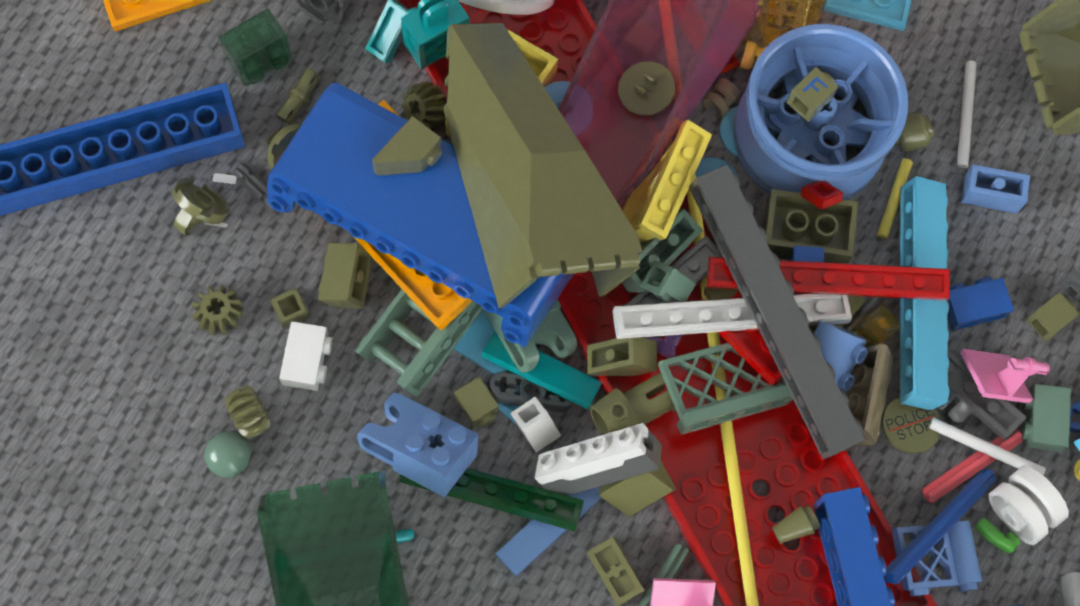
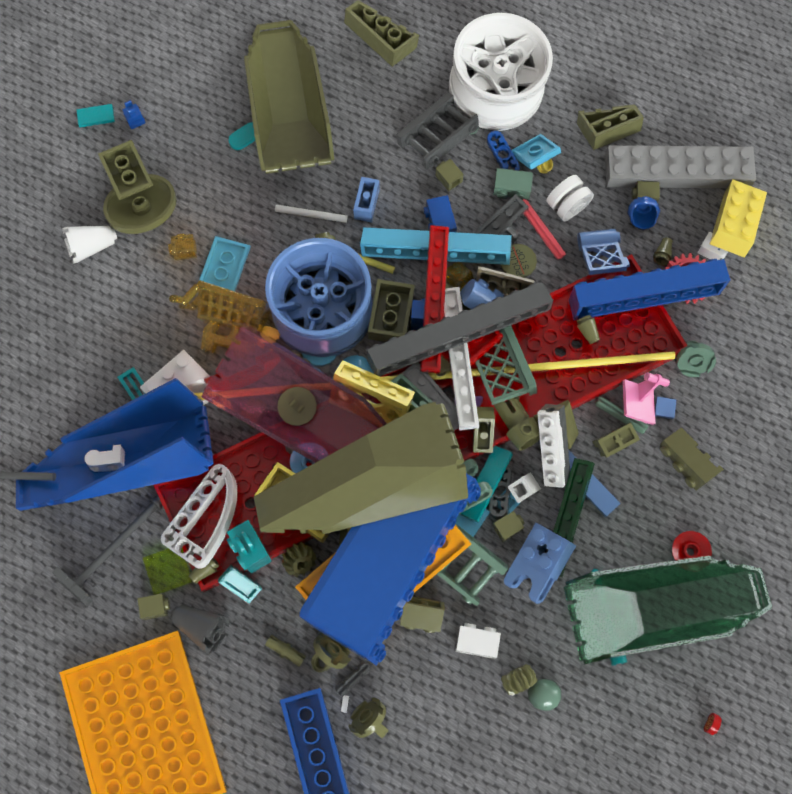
camera: 85 degrees left, 0 degrees up
(205, 310) = (447, 697): olive gear -> none
(256, 47) = (250, 680): clear green brick -> none
(290, 307) = (443, 653): olive slope -> none
(408, 150) = (357, 554): olive slope -> none
(667, 283) = (440, 393): sand green brick -> none
(812, 93) = (319, 293): olive brick -> none
(821, 194) = (376, 300): red tile -> none
(939, 526) = (585, 247): blue axle -> none
(982, 445) = (533, 219): white bar -> none
(994, 536) = (586, 219): bright green arm -> none
(1002, 376) = (491, 207): bright pink plate -> none

